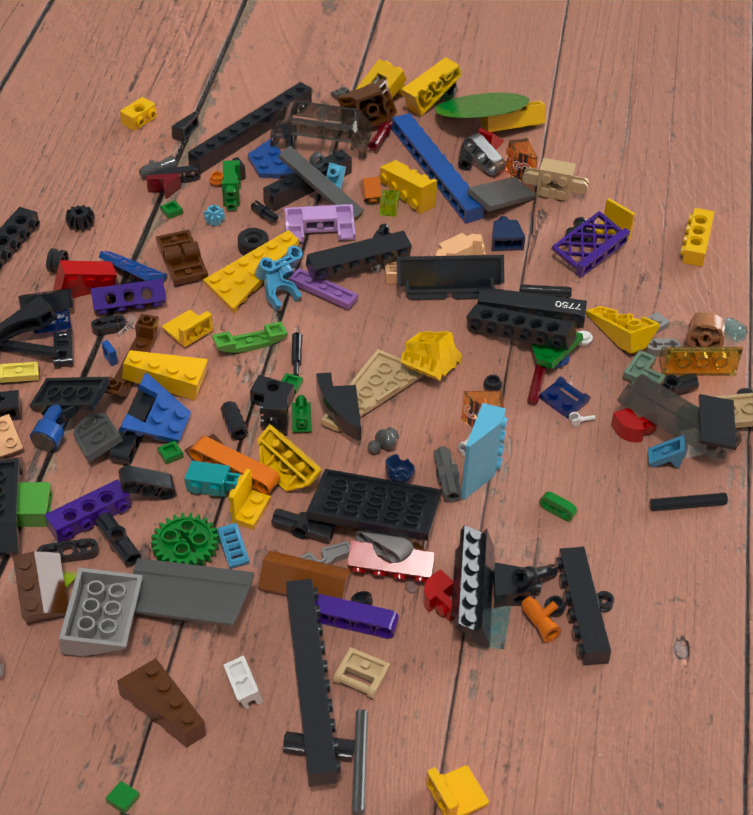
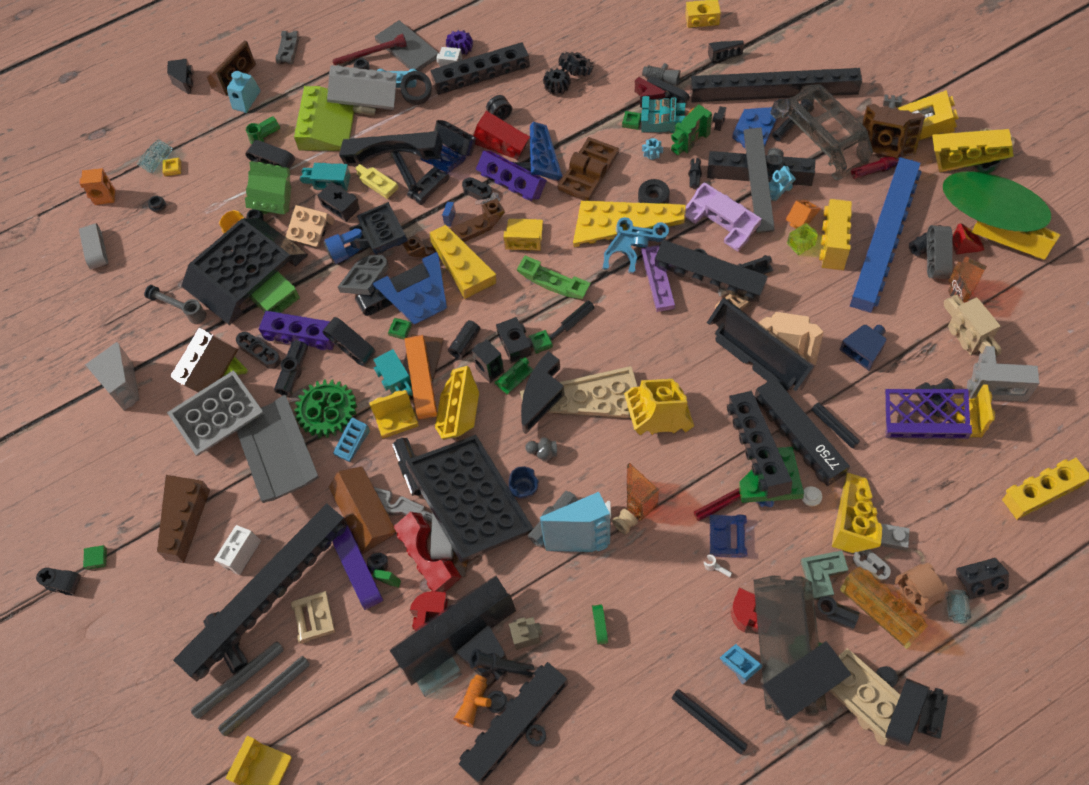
camera: 55 degrees right, 15 degrees up
(82, 196) = (575, 63): none -> black gear
(192, 191) = (661, 114): none -> teal hips
(383, 601) = (387, 578): none -> green tile
(394, 753) = (263, 696): none -> dark grey axle
(492, 383) = (684, 472): black plate -> none
(501, 193) = (907, 302): dark grey tile -> none
(519, 550) = (525, 632): none -> dark tan brick
(594, 195) = (1004, 381): none -> light grey brick
(727, 303) = (983, 578): none -> black bracket

